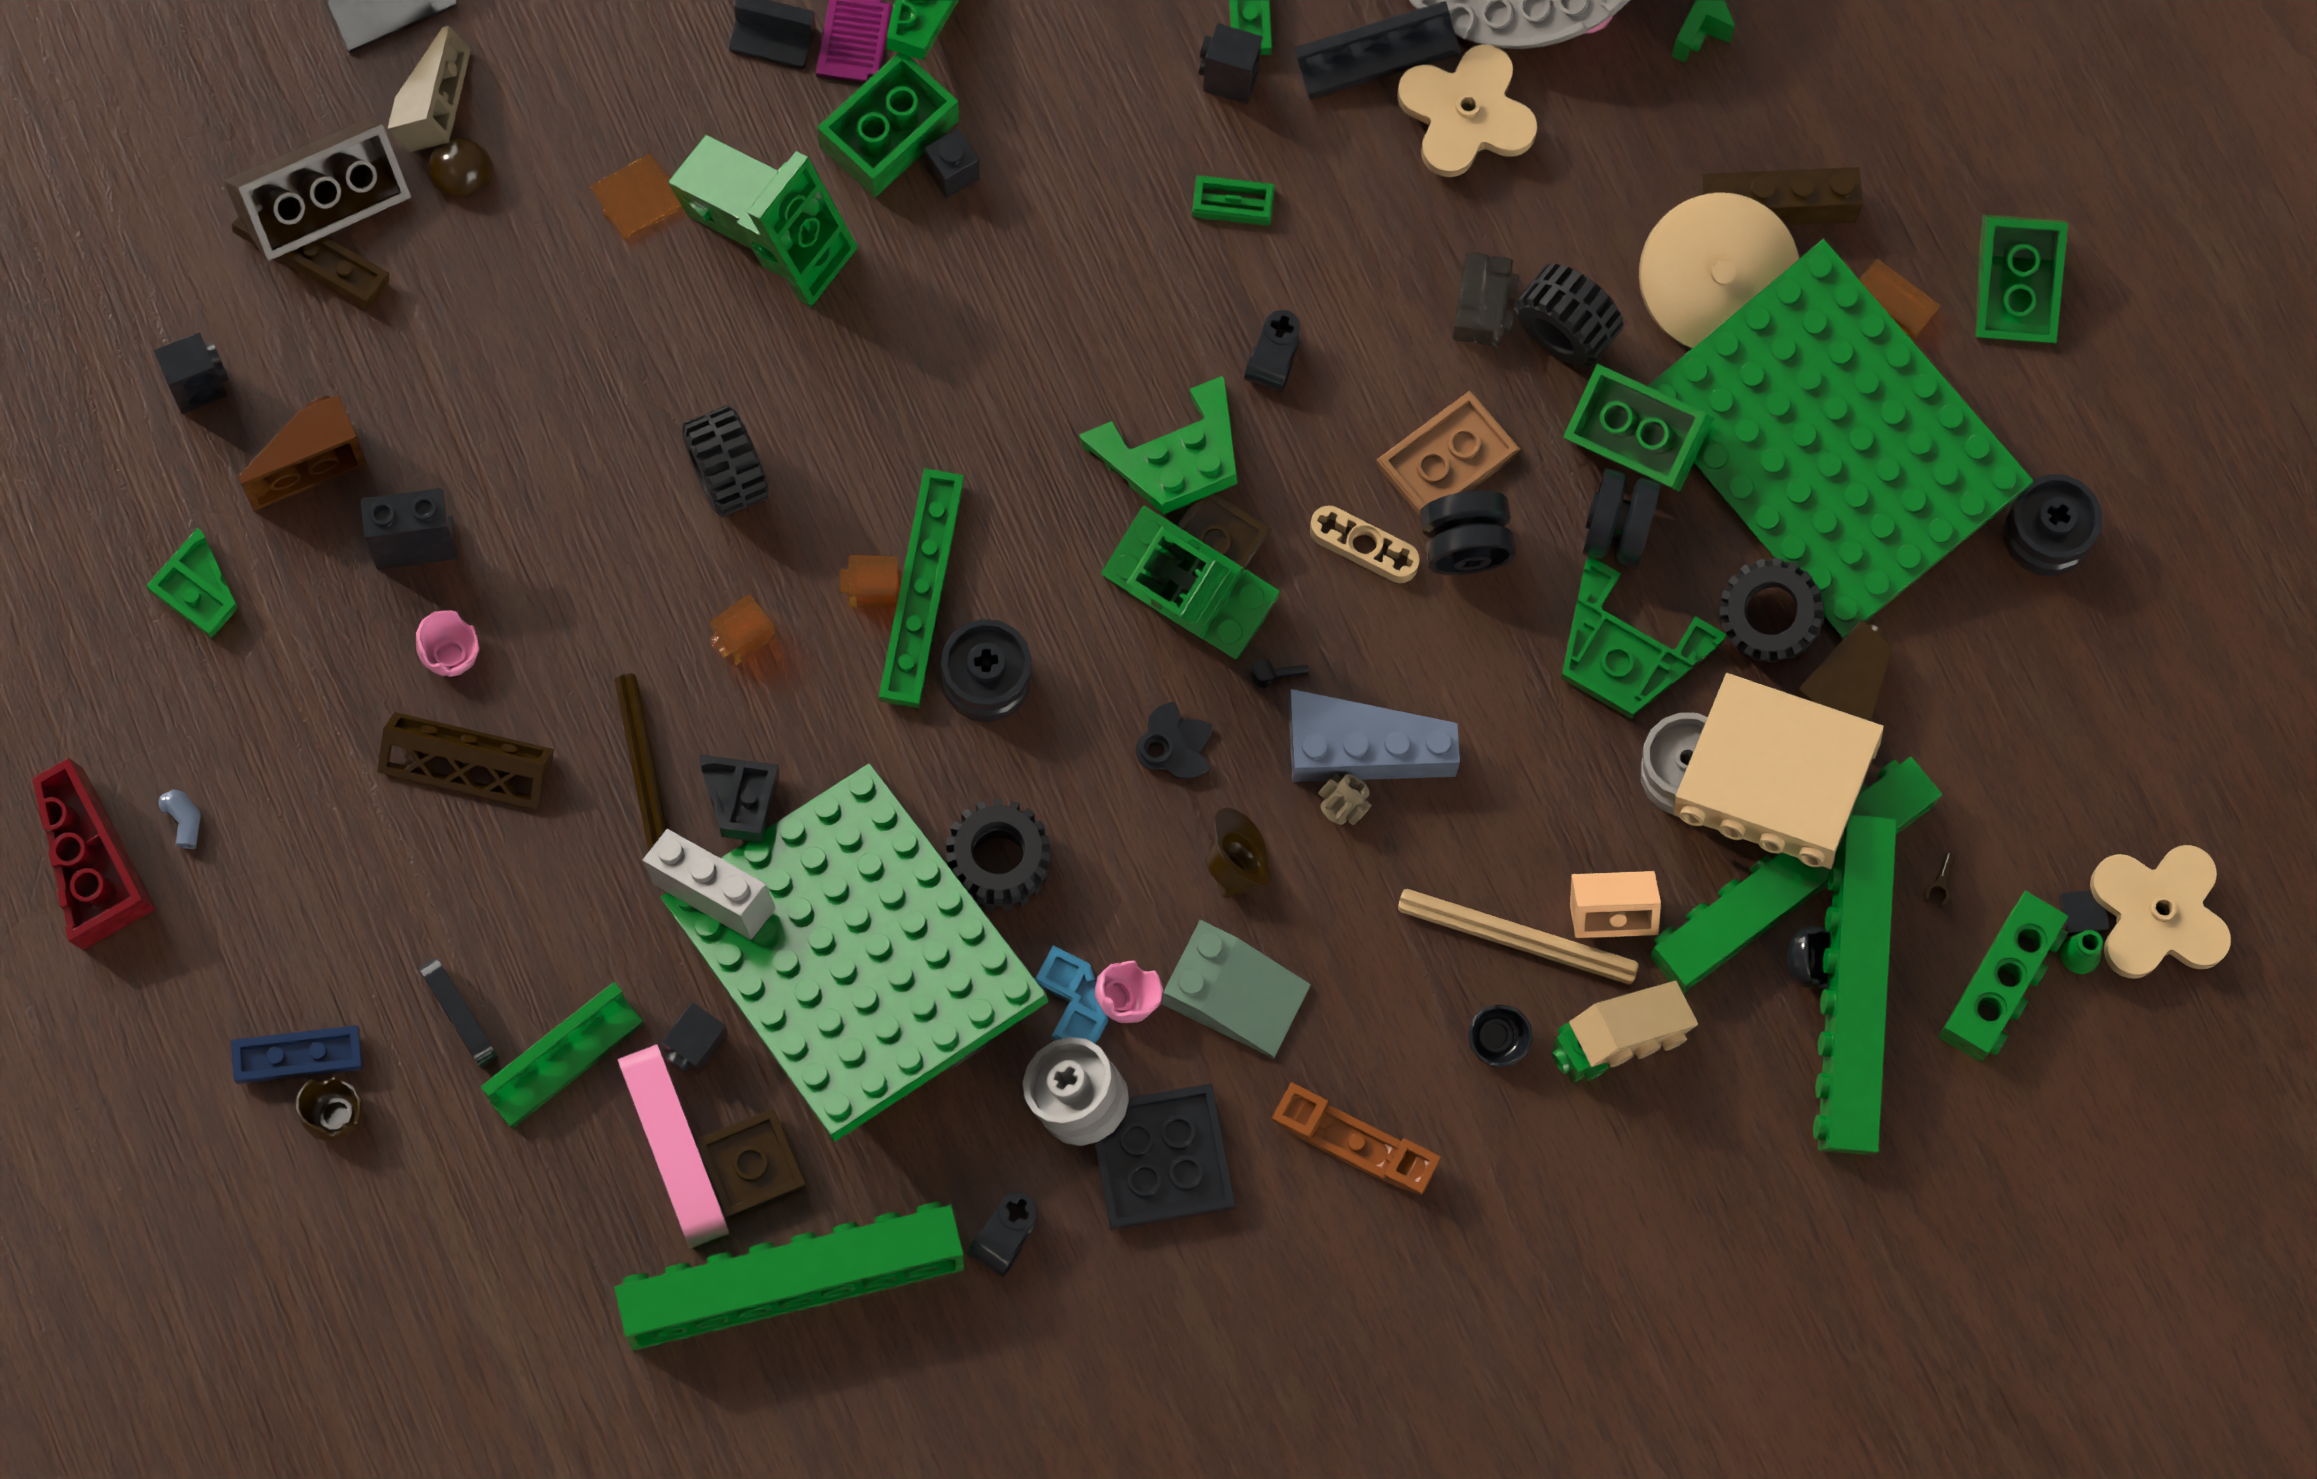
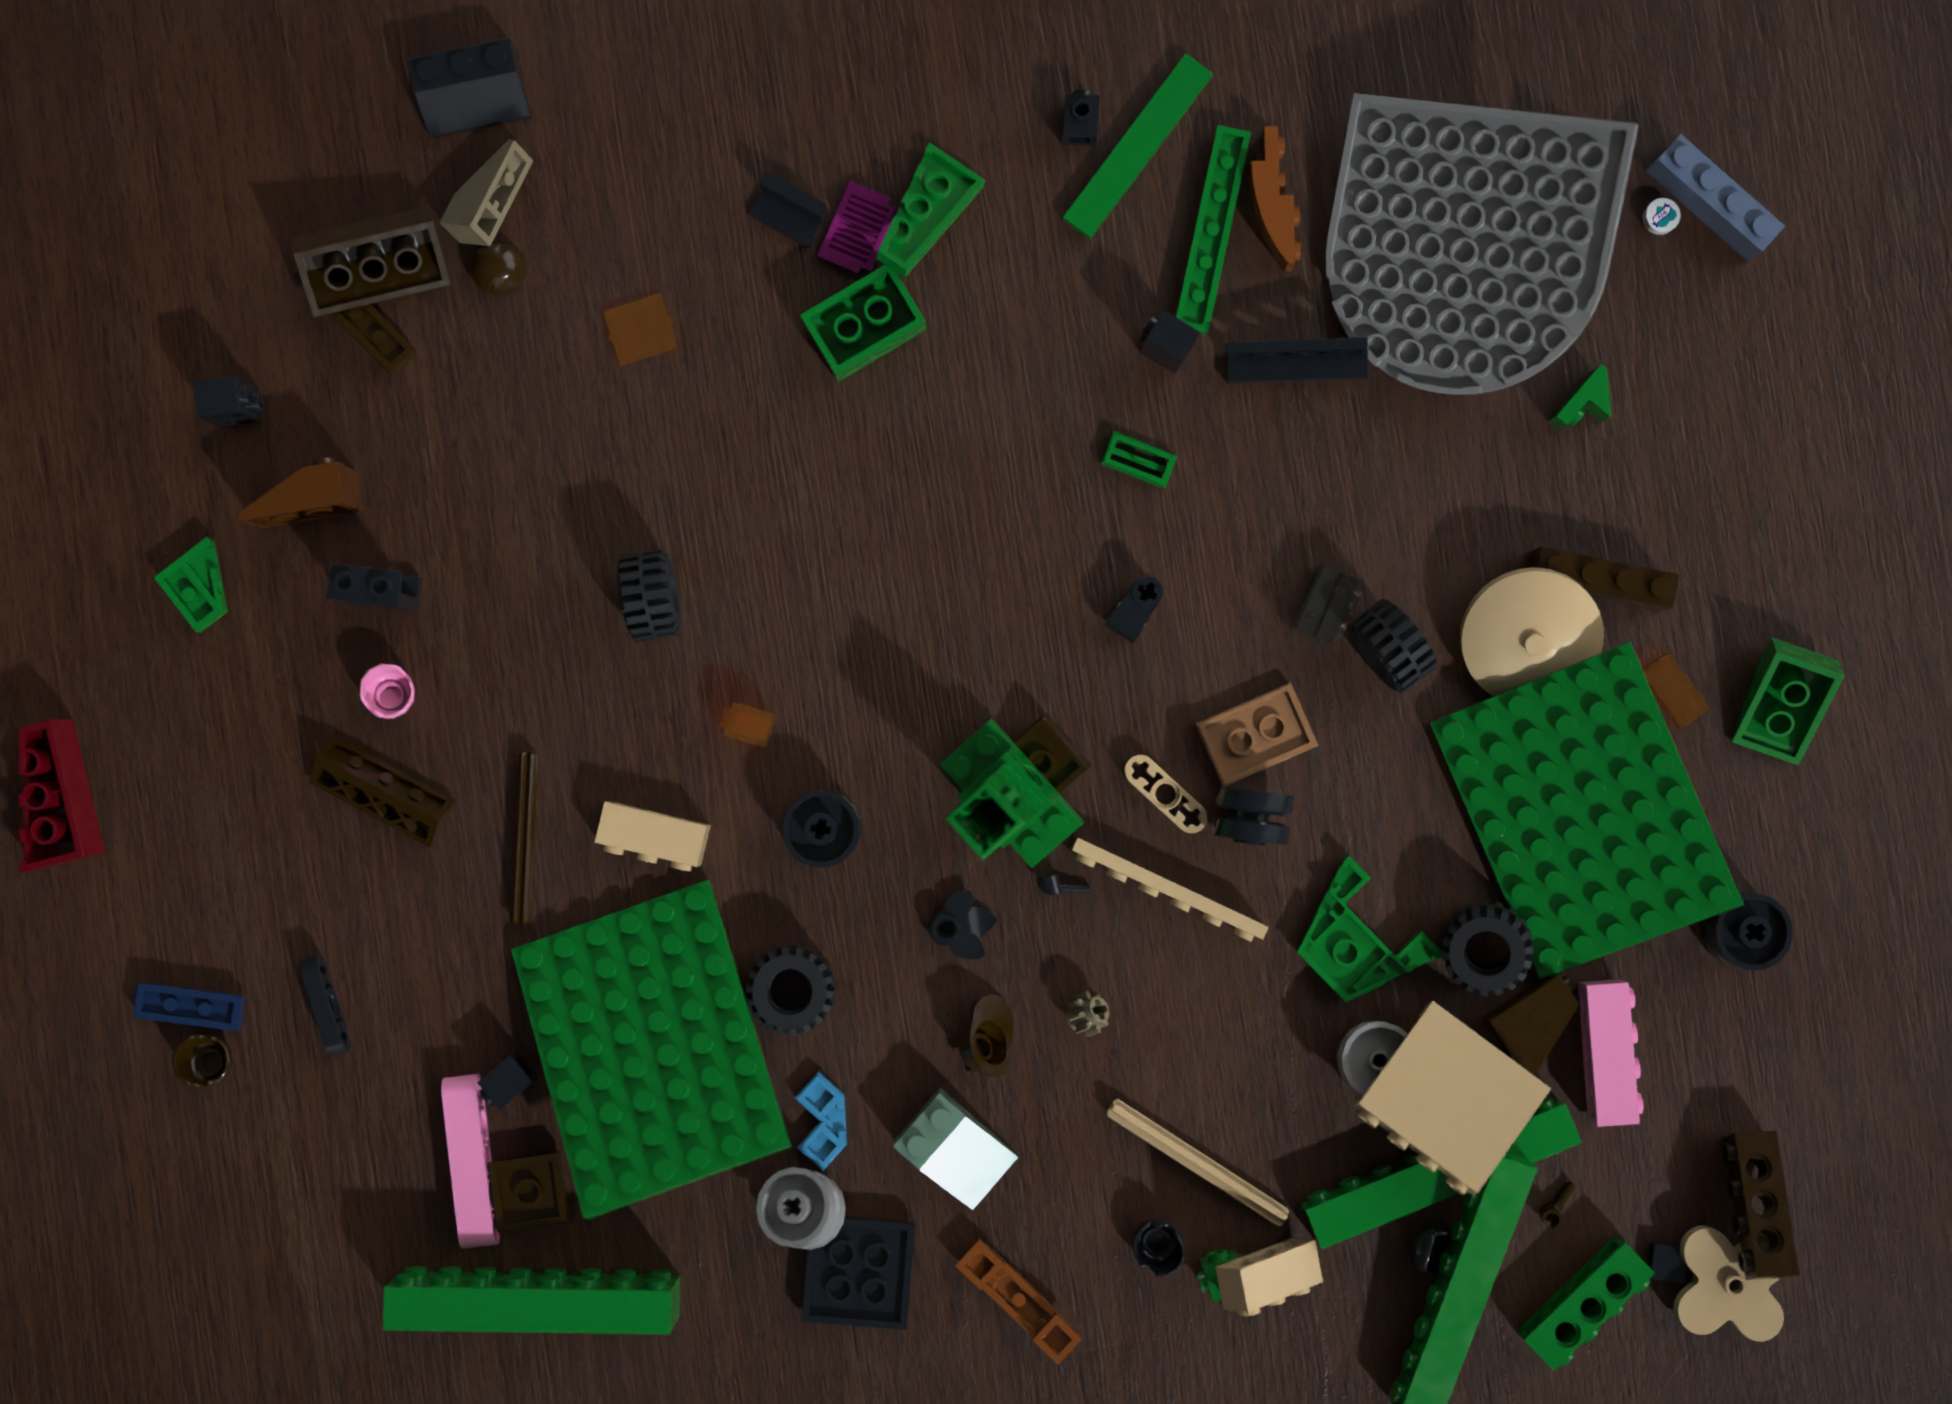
camera: 20 degrees right, 15 degrees up
(185, 813) = (146, 779): sand blue arm -> none
(562, 1055) = (401, 1063): green fence -> none
(709, 884) = (545, 962): light grey brick -> none
(740, 795) = (595, 882): black wing -> none
(741, 630) = (630, 739): clear orange brick -> none
(772, 211) = (740, 385): green brick -> none
(793, 728) = (652, 835): none -> tan brick
(921, 588) = (789, 739): green plate -> none
(952, 163) = (909, 370): black brick -> none
(1002, 1240) = (714, 1305): black piece -> none
(1128, 992) = (867, 1131): bright pink hair -> none
(1179, 464) = (1029, 691): green wing -> none
(1366, 741) = (1111, 968): sand blue wedge -> none
(1383, 639) = (1181, 896): none -> tan plate
(1459, 134) = (1341, 451): tan plant -> none
(1615, 904) = (1284, 1162): light nougat brick -> none
(1621, 518) = (1385, 836): black wheel -> none
(1638, 427) = (1422, 760): green brick -> none
(1943, 693) = (1609, 1052): none -> bright pink brick
(2077, 957) = (1657, 1299): green cone -> none
(2146, 757) = (1769, 1186): none -> dark brown brick

